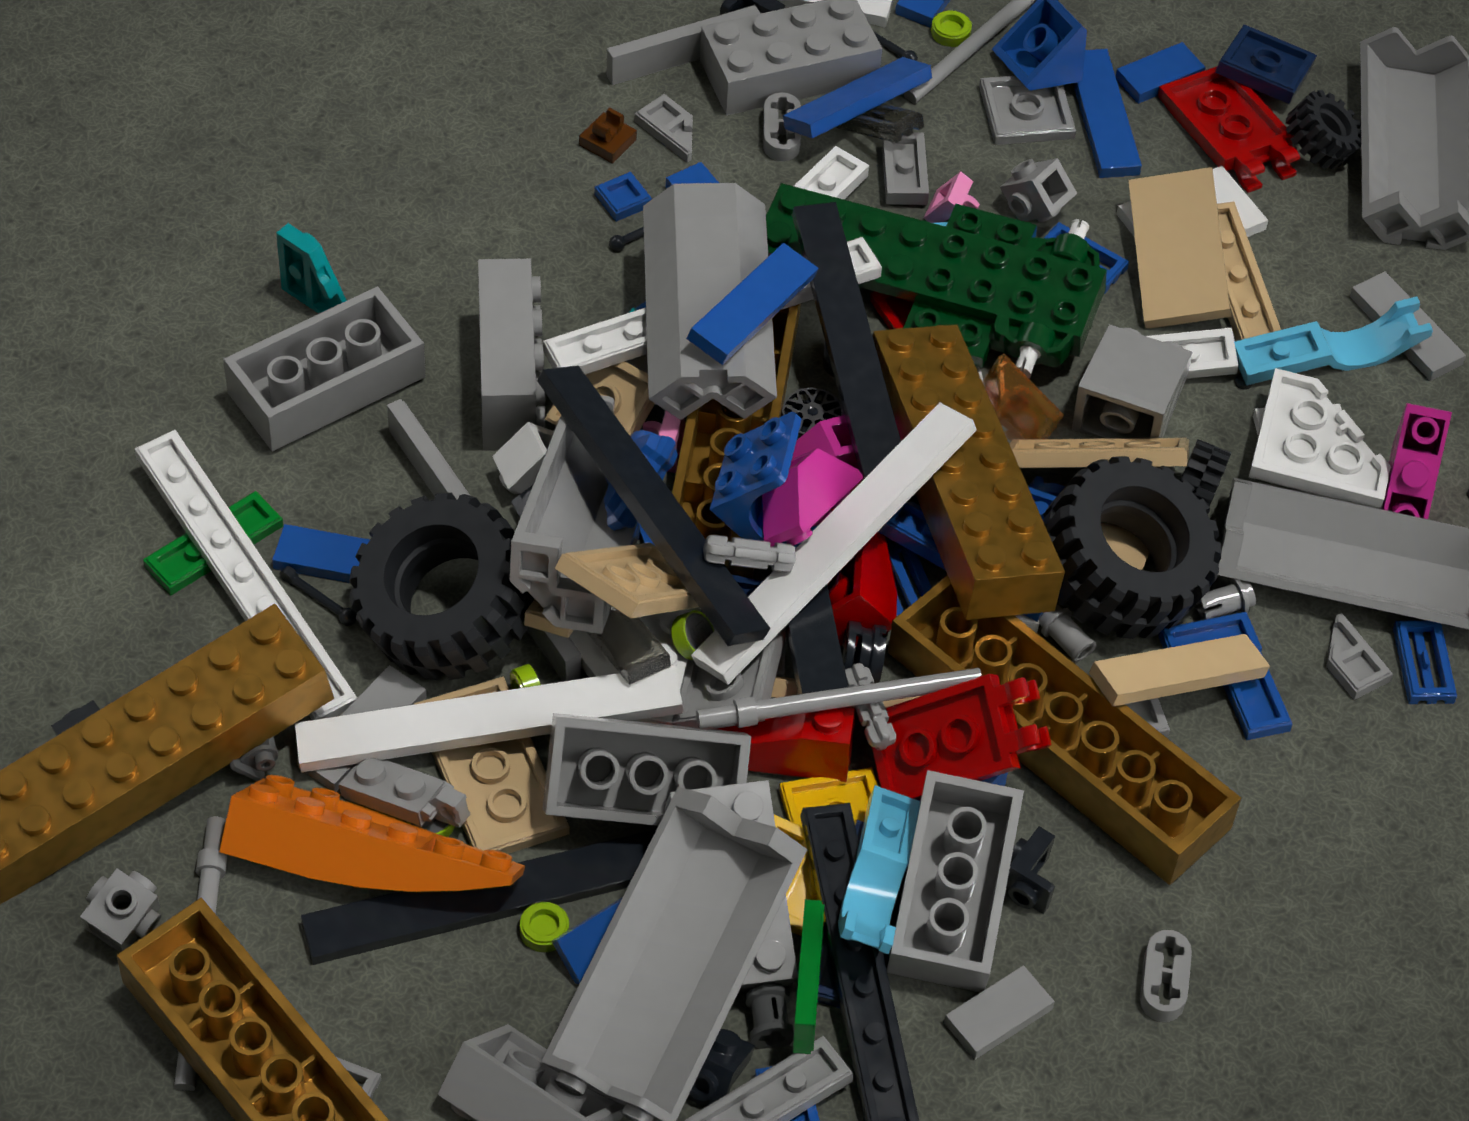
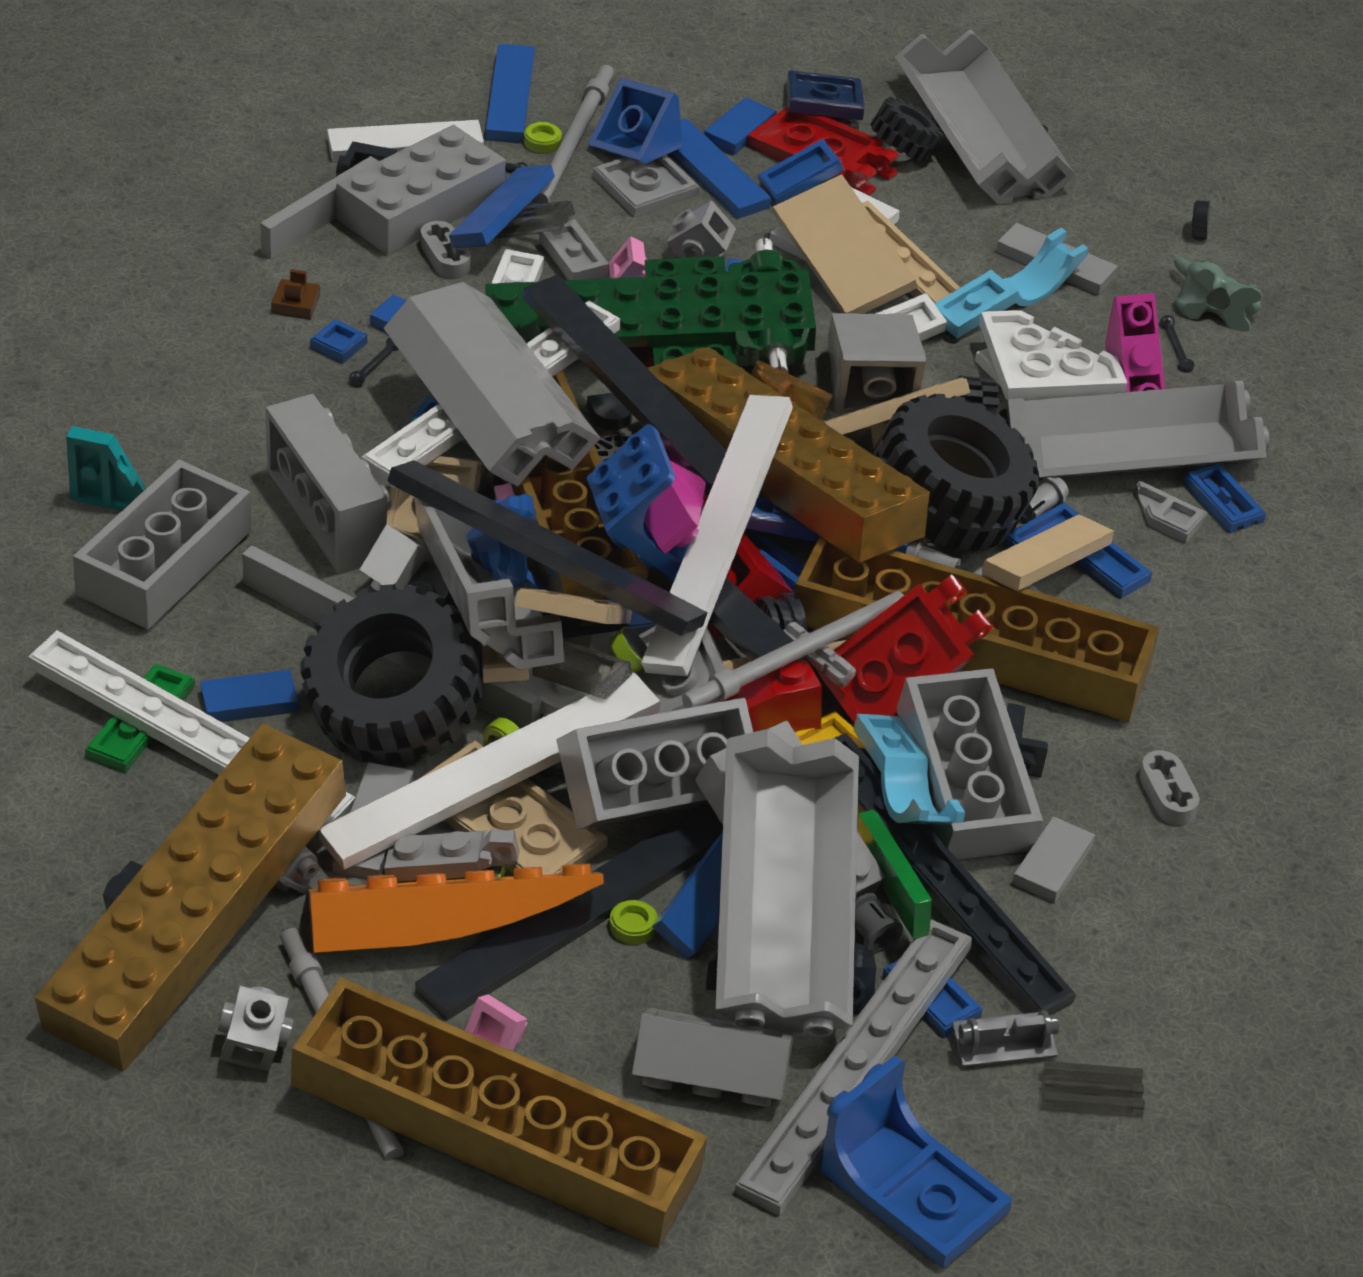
camera: 25 degrees left, 10 degrees down
(343, 994) = (496, 1022): none -> bright pink tile
(346, 615) = (231, 721): black hinge -> none
(668, 124) = (344, 275): light grey tile -> none
(749, 553) = (656, 559): light grey axle -> none
(752, 303) = (543, 365): blue tile -> none
(1186, 146) = (800, 172): none -> blue tile

